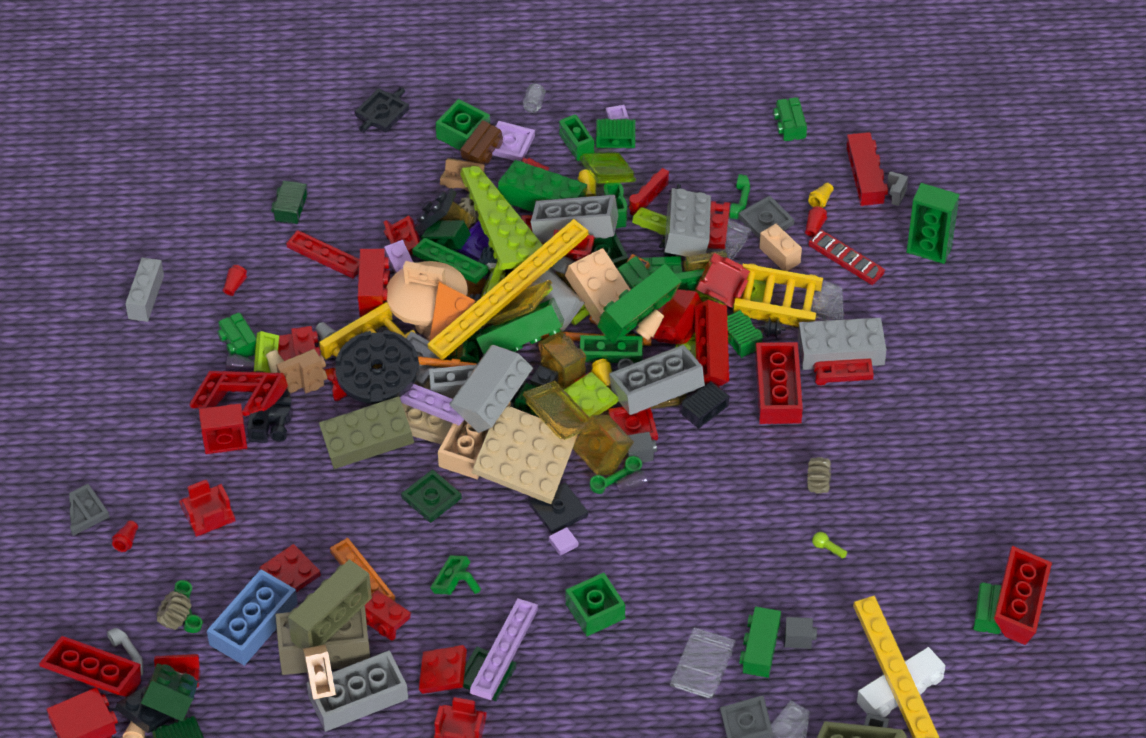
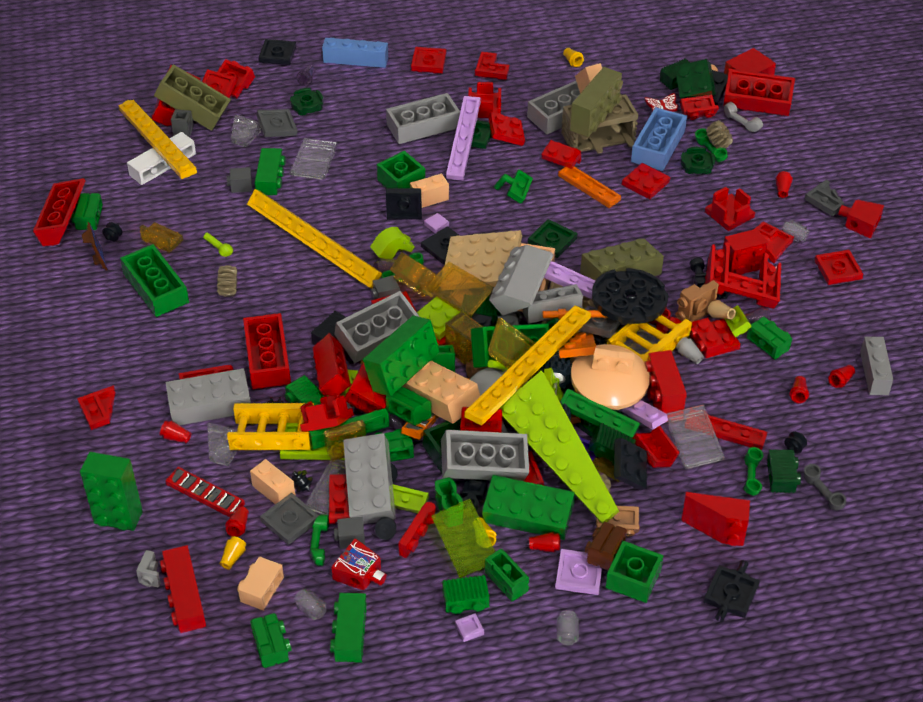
camera: 170 degrees right, 5 degrees down
(55, 473) = (862, 217): none -> red torso
(119, 414) = (838, 267): none -> red plate
(144, 466) = (797, 230): none -> clear brick
(180, 459) = (776, 239): none -> red plate
(184, 288) = (841, 376): none -> red cone
(214, 600) = (691, 165): none -> dark green plate
(223, 685) = (668, 103): none -> red animal
(253, 173) = (812, 476): none -> dark grey bar
(263, 227) = (796, 442): none -> black wheel
(326, 194) = (752, 460): none -> green bar
(357, 236) = (694, 437): none -> clear piece
(370, 156) = (717, 517): none -> red slope
(550, 695) = (422, 118): none -> light grey brick
(561, 576) = (433, 189): none -> light nougat brick
(600, 550) = (404, 203): none -> black plate
(620, 502) = (390, 241): none -> lime brick
(707, 167) = (358, 567): none -> red torso
(715, 190) = (348, 530): none -> dark grey brick
(720, 537) = (314, 238): none -> yellow plate
(721, 120) = (349, 627): none -> green brick
(752, 249) = (302, 482): none -> black wheel
(753, 143) = (310, 604): none -> clear brick
(796, 164) = (260, 583): none -> light nougat brick
(877, 312) = (174, 432): none -> red cone
(898, 557) = (160, 236): none -> clear yellow bracket
(903, 488) = (154, 280): none -> green brick
(957, 353) = (98, 407): none -> red wing
(957, 573) = (112, 231): none -> black wheel
(973, 536) = (90, 237): none -> reddish brown piece

